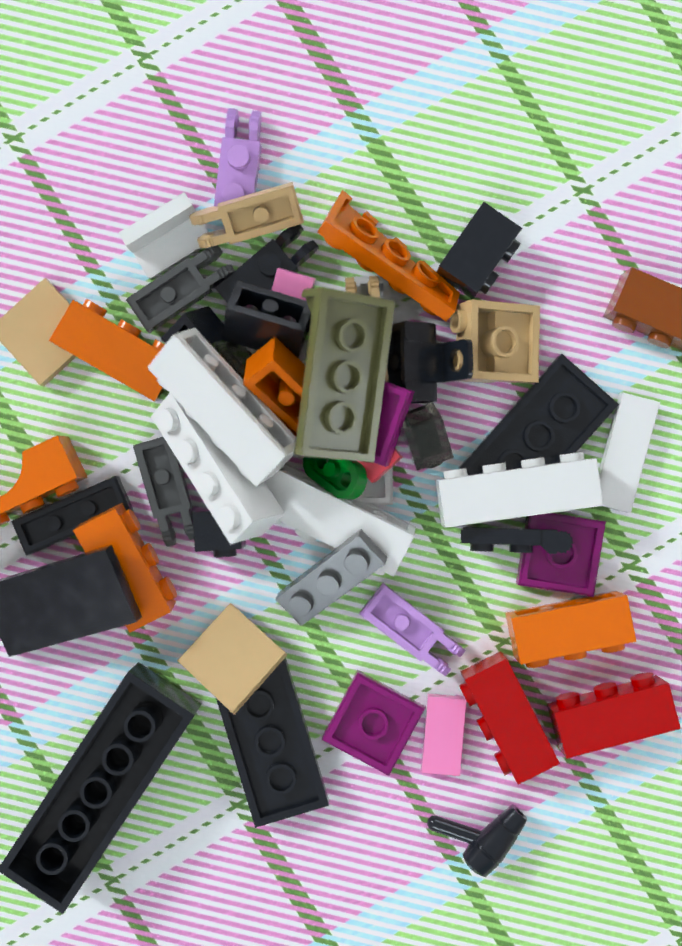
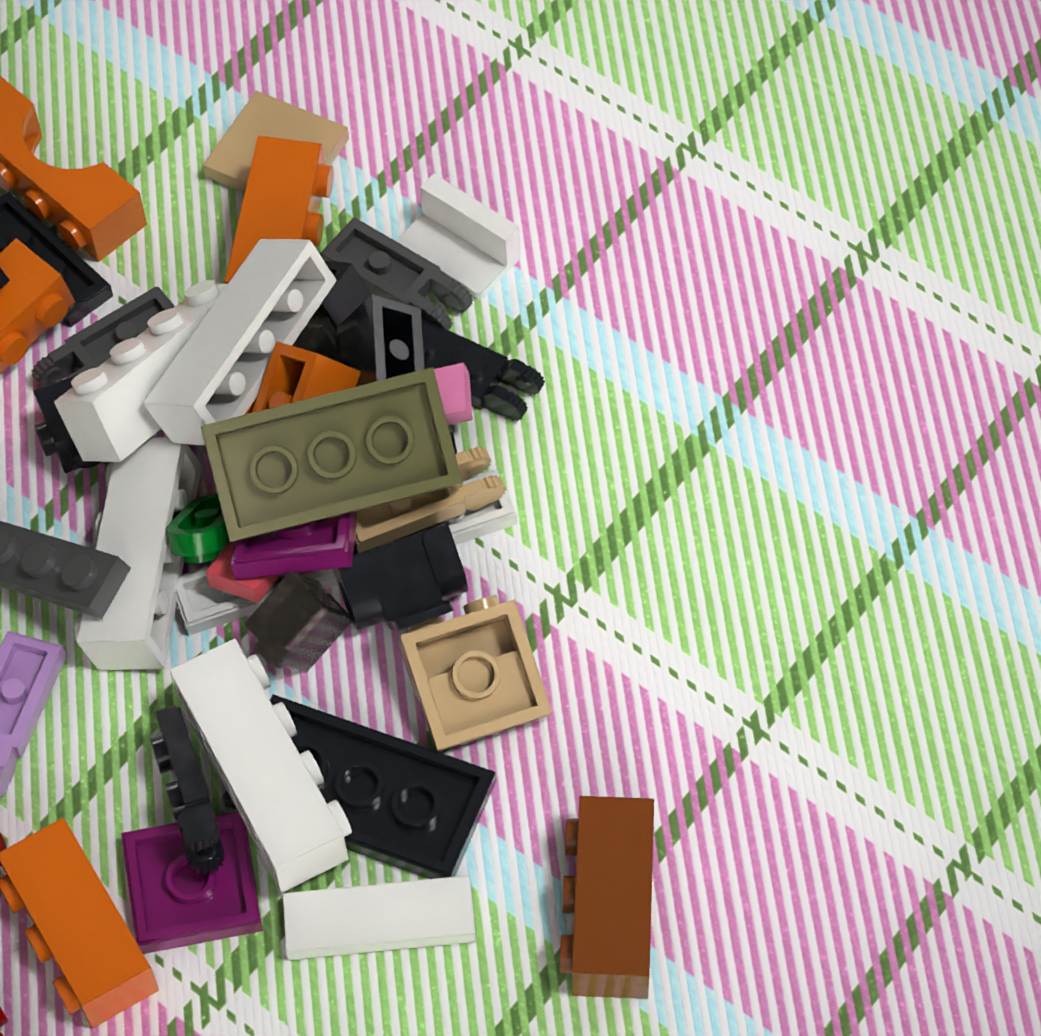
camera: 70 degrees right, 30 degrees down
(238, 159) = (592, 291): lavender hinge -> none
(250, 216) = (524, 315): tan hinge -> none
(387, 257) = (540, 473): orange wing -> none
(478, 251) = (596, 606): black brick -> none

